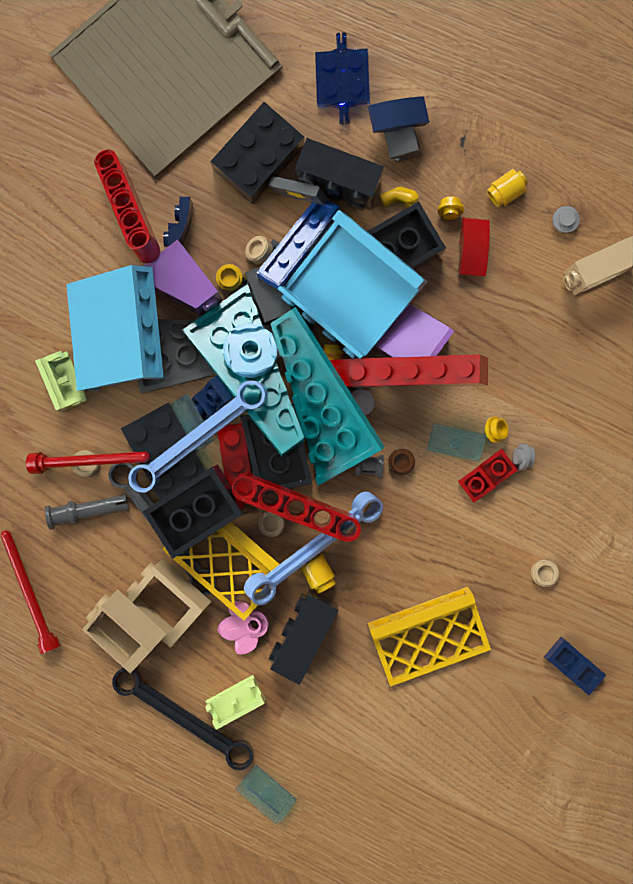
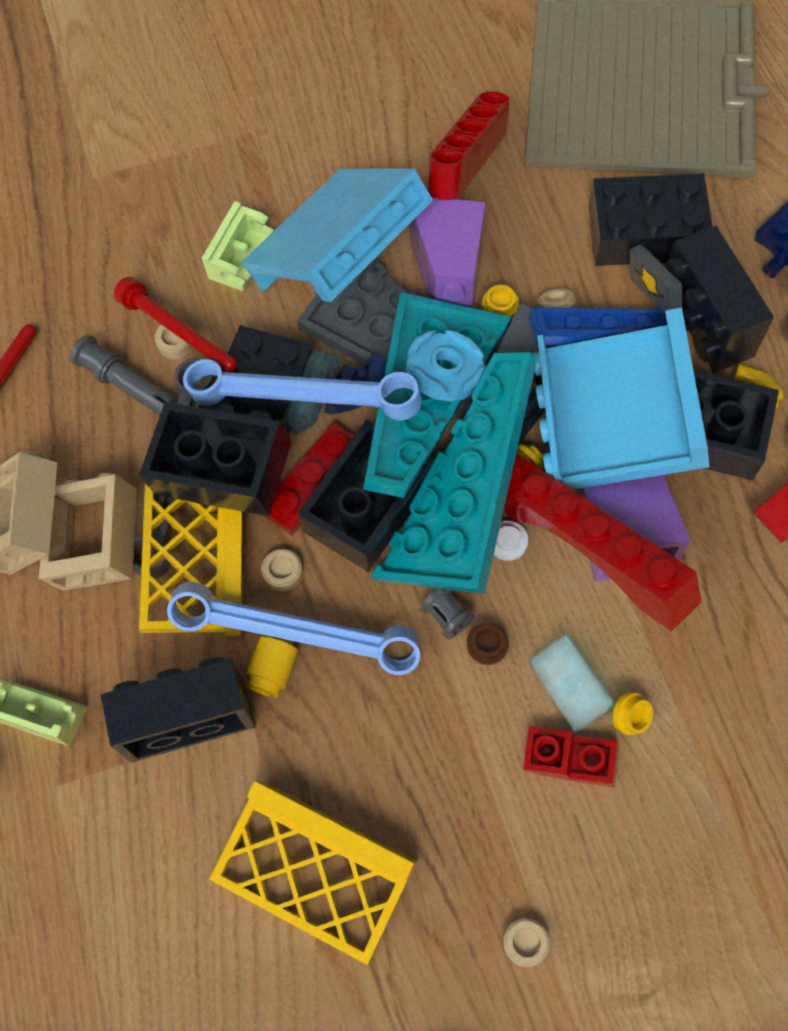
camera: 50 degrees right, 20 degrees down
(179, 230) = (515, 213): dark blue slope -> none
(241, 631) = (130, 646): bright pink plate -> none
(306, 517) = (307, 542): red beam -> none
(523, 456) = (635, 776): light grey plate -> none

